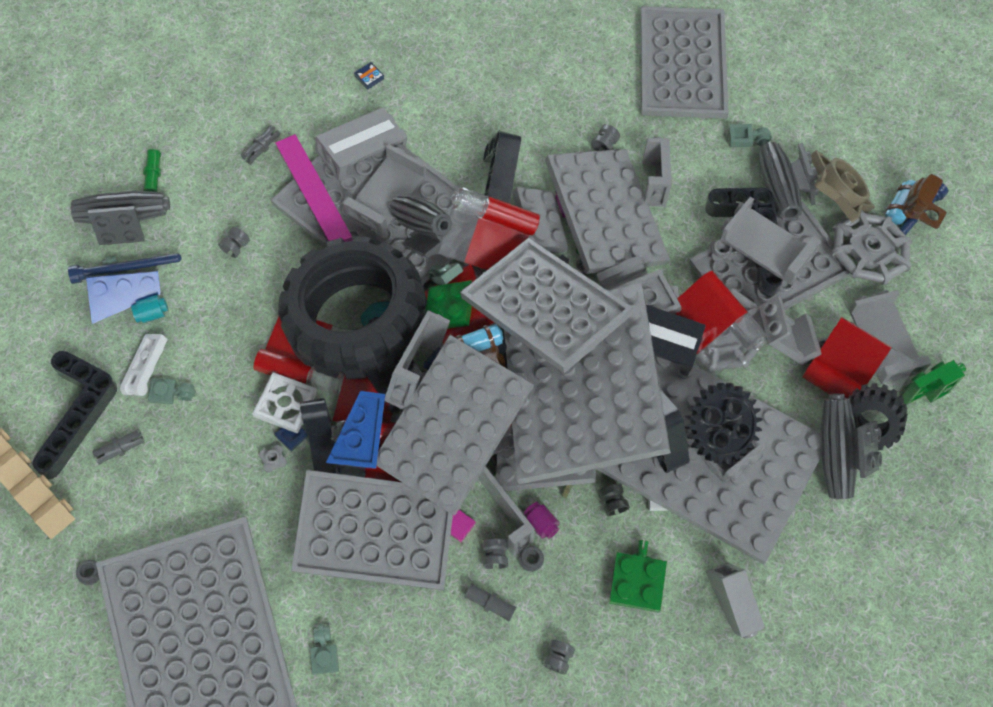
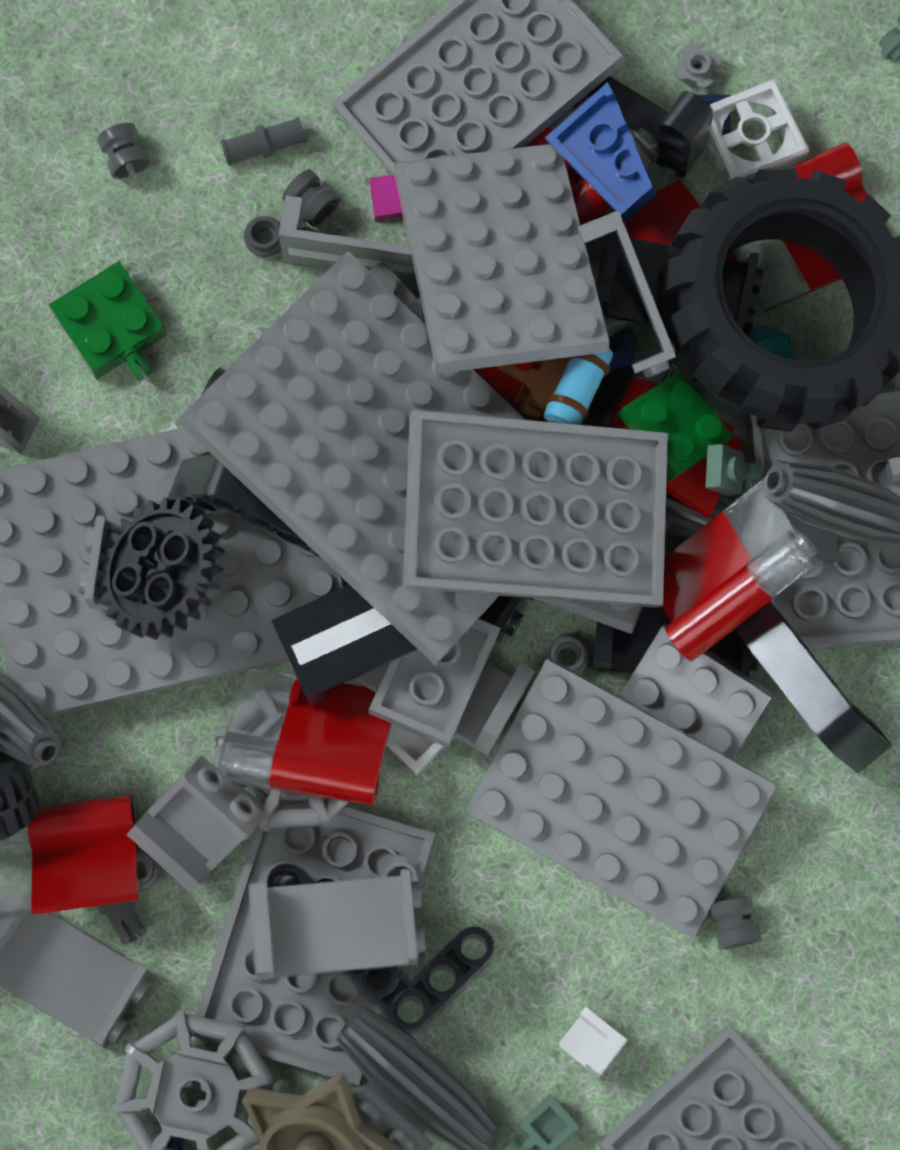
camera: 140 degrees right, 10 degrees up
(542, 520) = (287, 286): magenta brick -> none
(658, 154) = (595, 929): light grey panel -> none
(697, 145) = (592, 1042): none -> white panel

